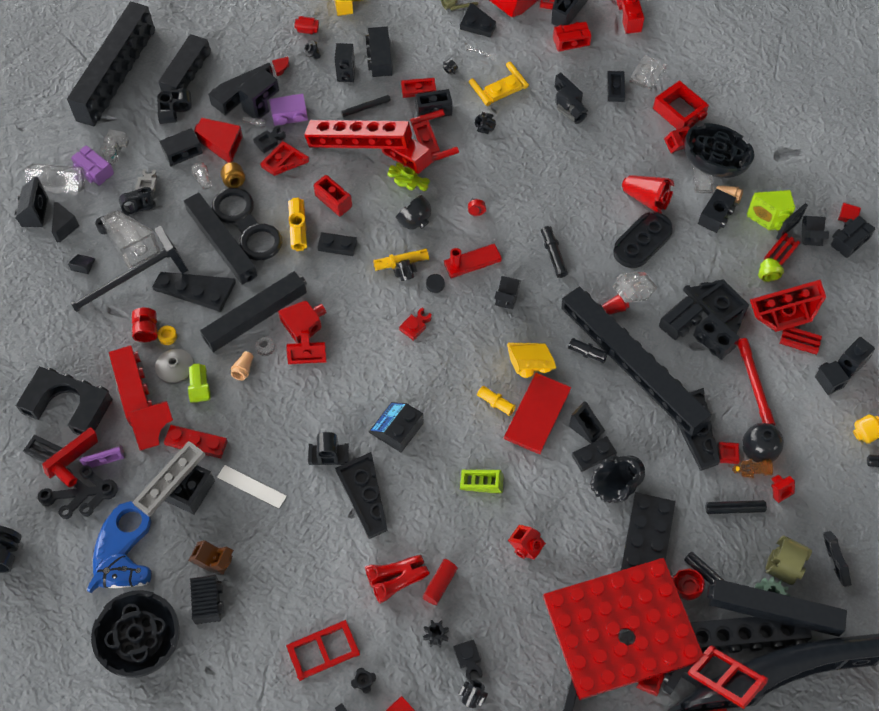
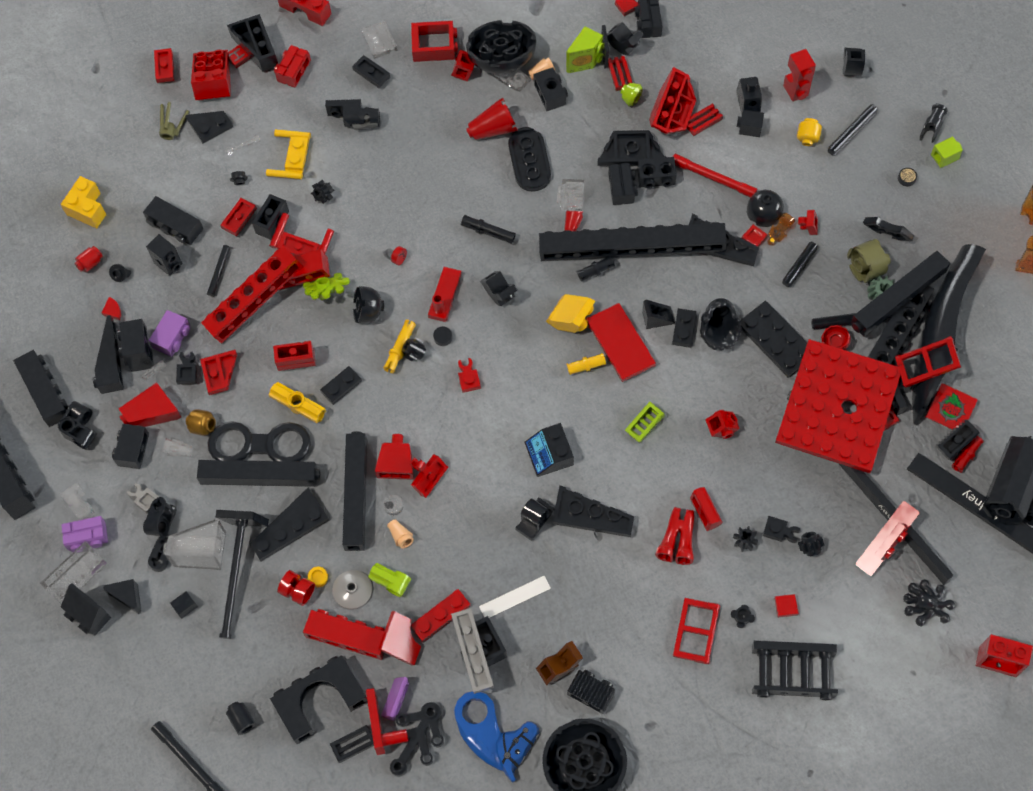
camera: 50 degrees left, 5 degrees up
(14, 359) = (240, 718): none -> black brick

